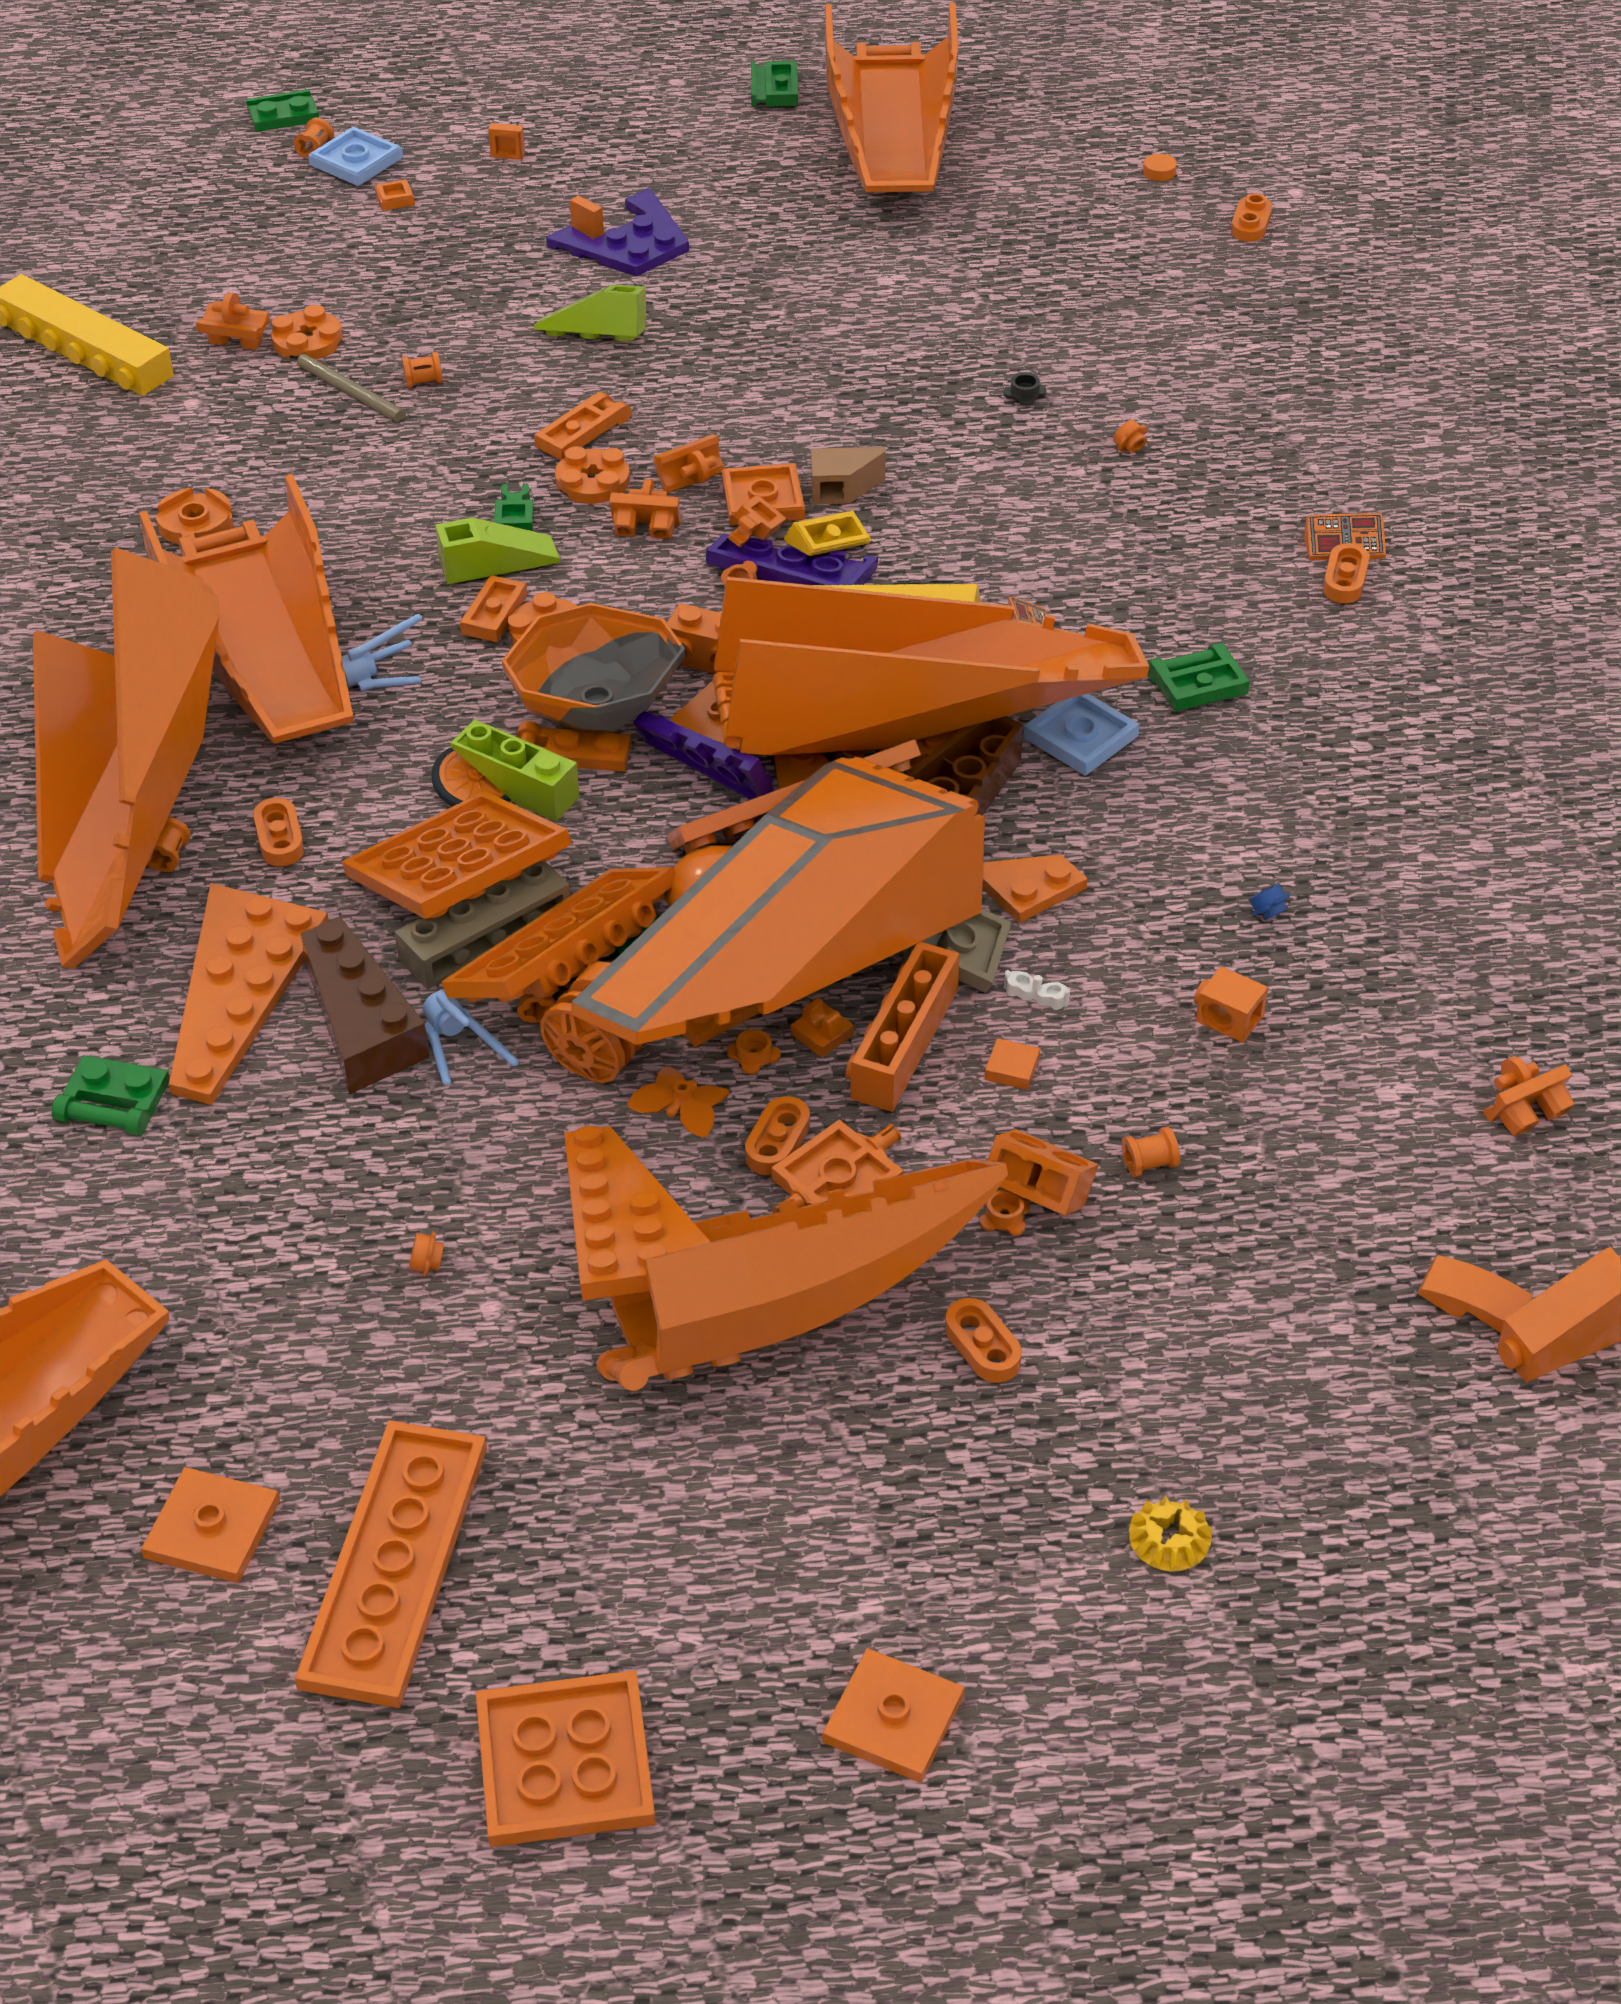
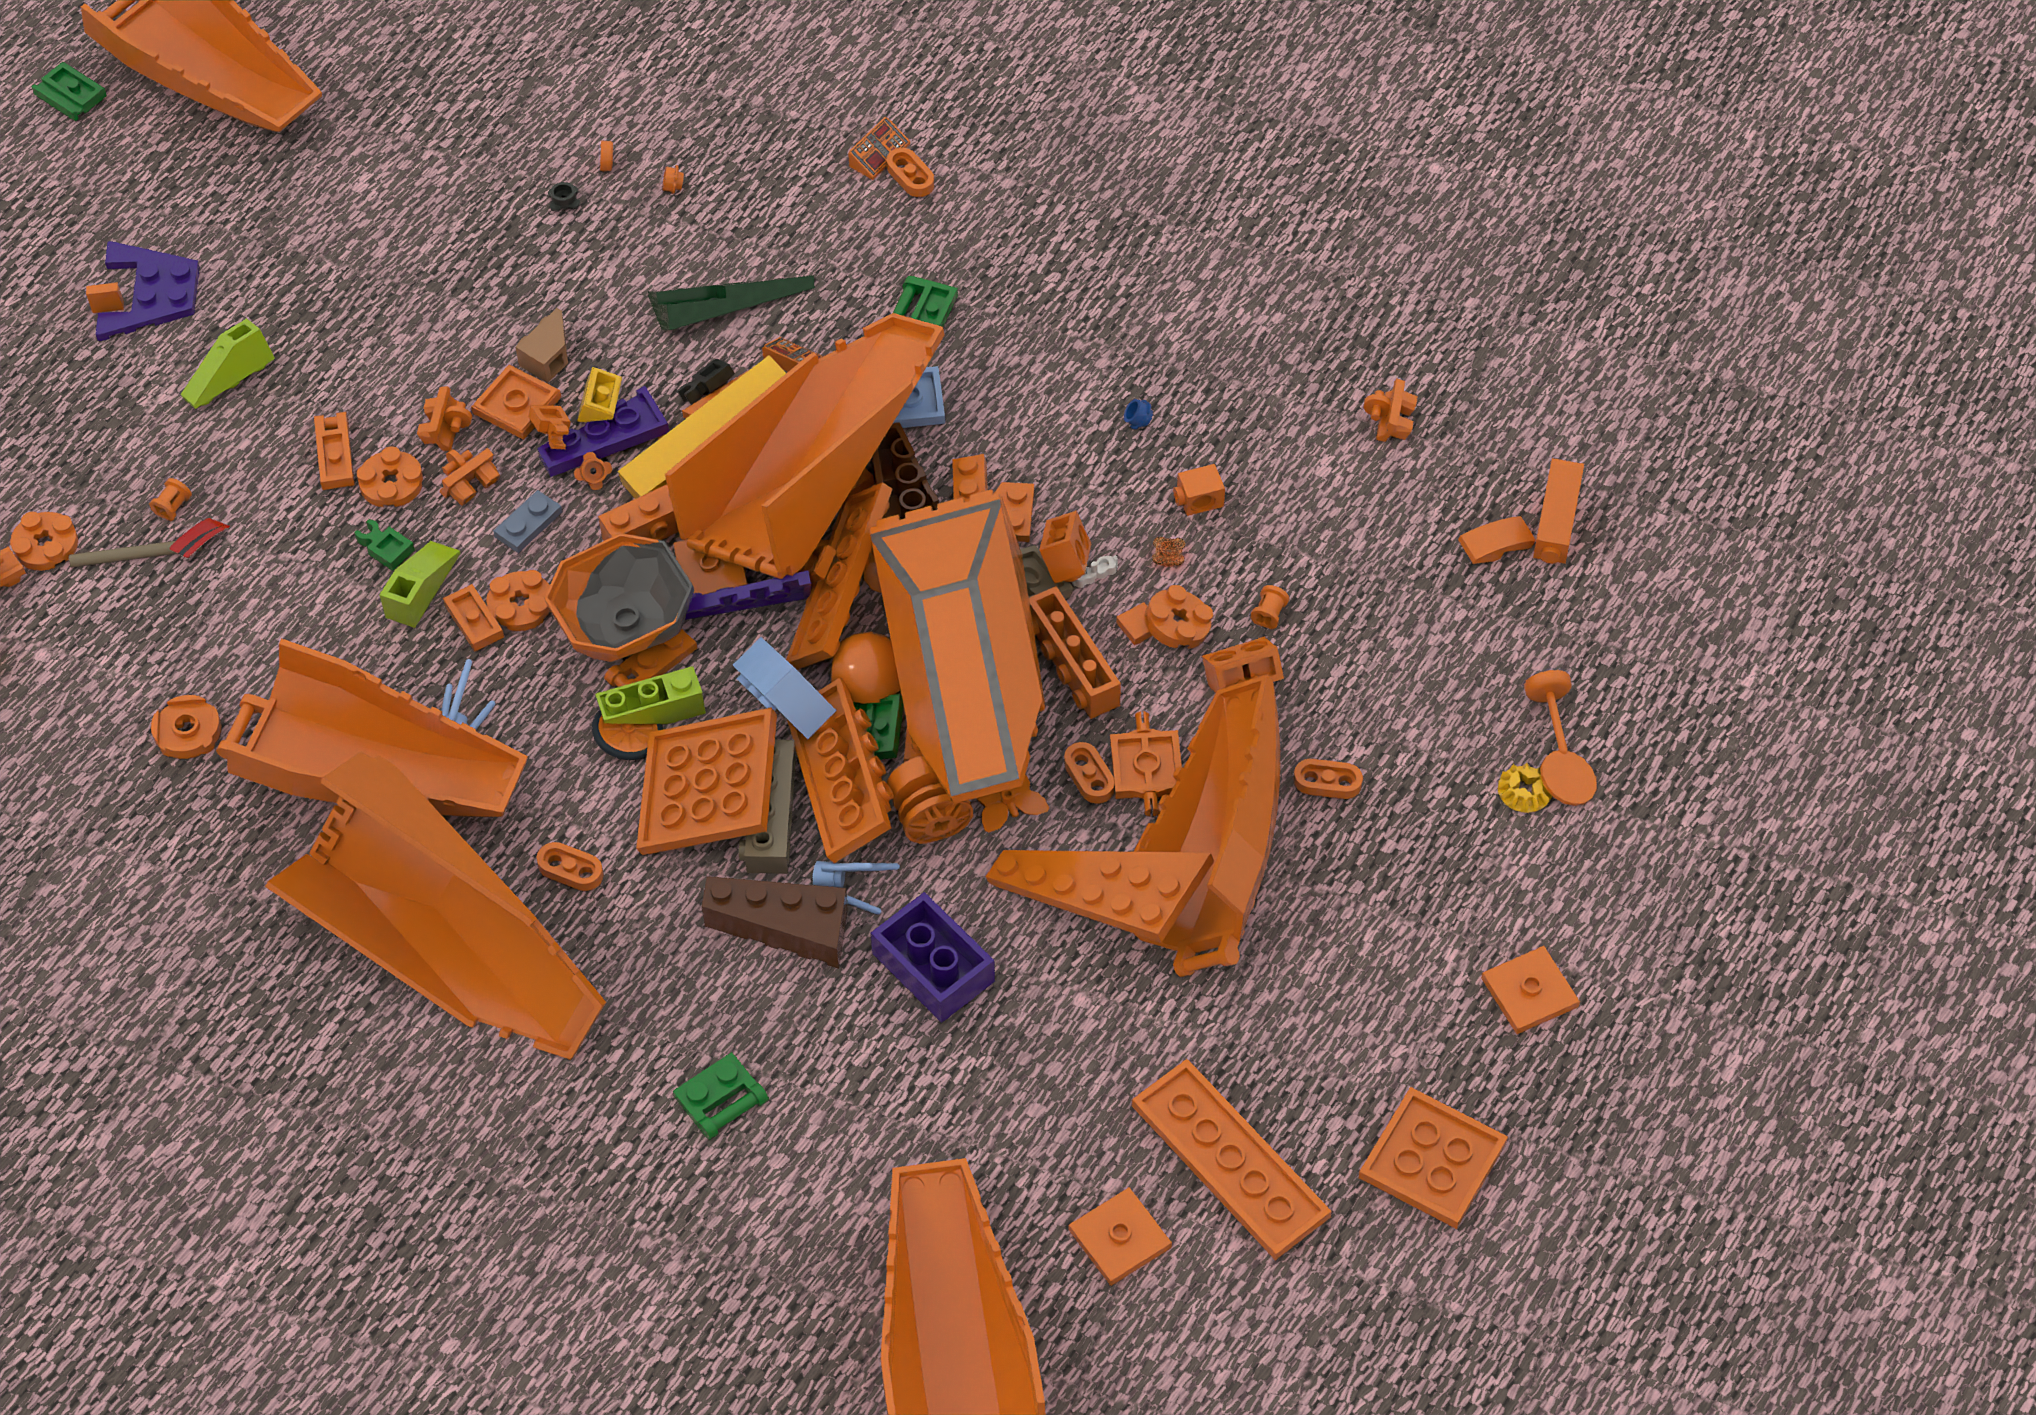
camera: 50 degrees left, 10 degrees up
(239, 973) = (678, 962): orange wing -> none
(403, 406) = (197, 536): none -> red sticker
(412, 1145) = (933, 957): none -> dark purple brick
(425, 1253) = (1015, 1006): orange plate -> none
(614, 837) = (782, 688): none -> light blue wedge
(642, 580) = (527, 521): none -> sand blue plate
(794, 774) = (819, 563): none -> orange tile
(1009, 532) = (696, 304): none -> dark green wedge
(1021, 937) = (1065, 547): none -> orange brick
(1025, 836) = (969, 476): none -> orange plate
(1058, 1065) = (1181, 603): none -> orange plate
(1101, 383) = (606, 157): none -> orange tile
(1128, 1030) = (1166, 558): none -> clear orange plate
(1227, 1561) = (1562, 771): none -> orange piece

